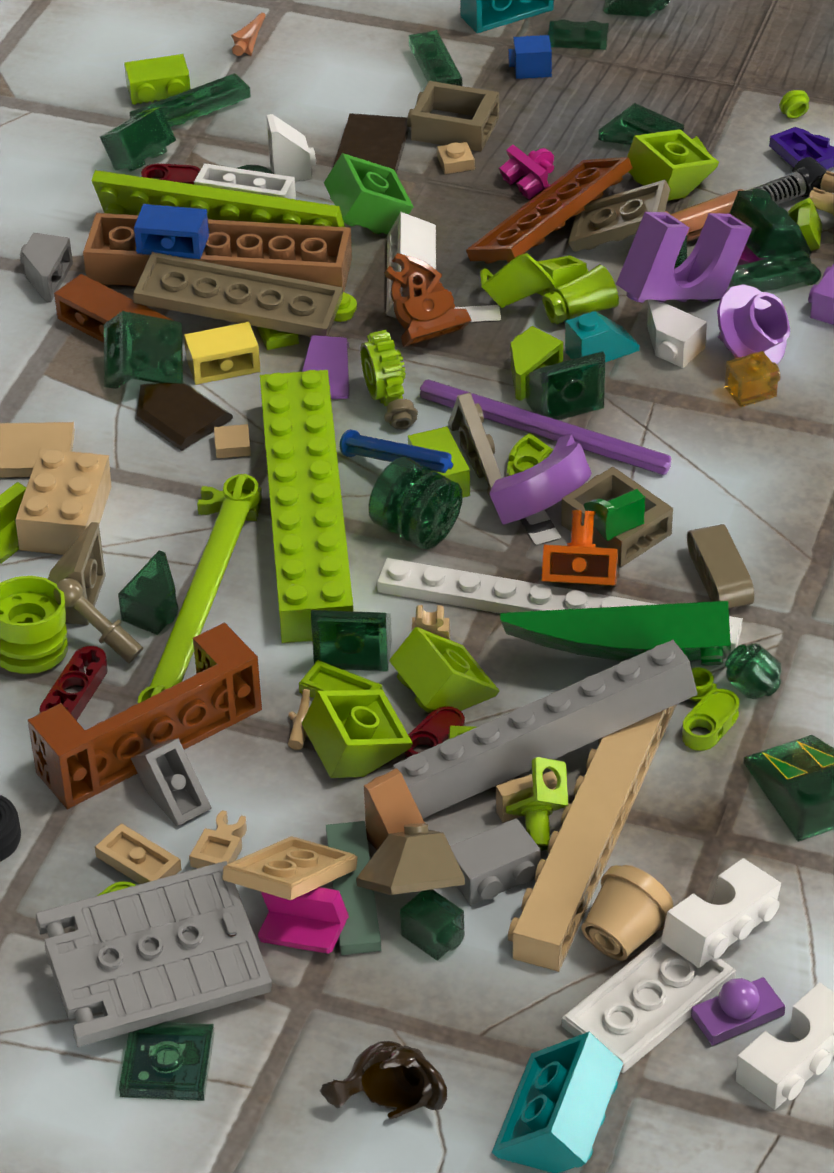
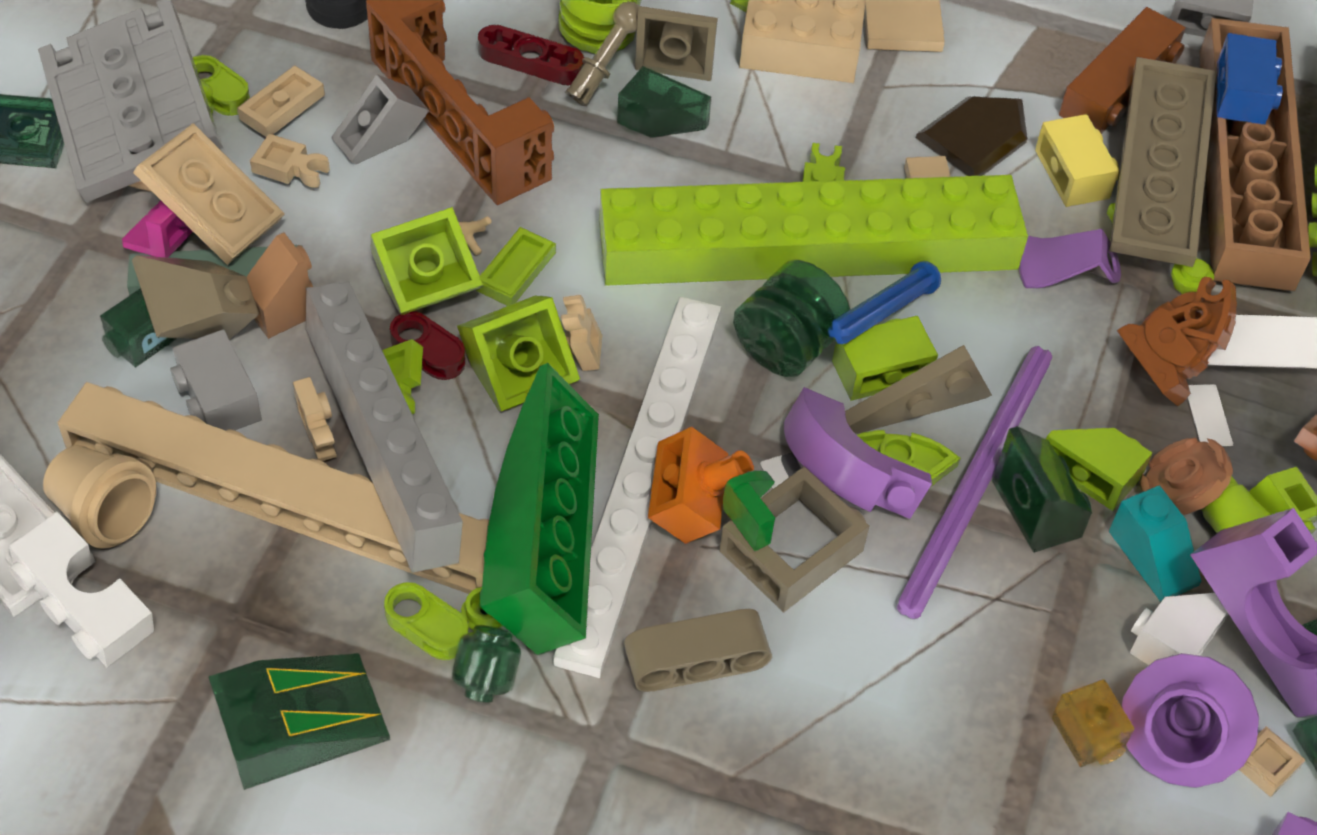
camera: 85 degrees right, 10 degrees up
(142, 350) = (1056, 83): clear green bracket -> none
(204, 584) = (684, 145): lime piece -> none
(352, 639) = (575, 261): clear green slope -> none
(382, 367) = (1042, 292): lime gear -> none
(401, 413) = (984, 327): dark tan plate -> none
(516, 280) = (1246, 439): lime piece -> none
(544, 308) = (1190, 473): none -> nougat tile
(544, 800) = (280, 418): lime bracket -> none

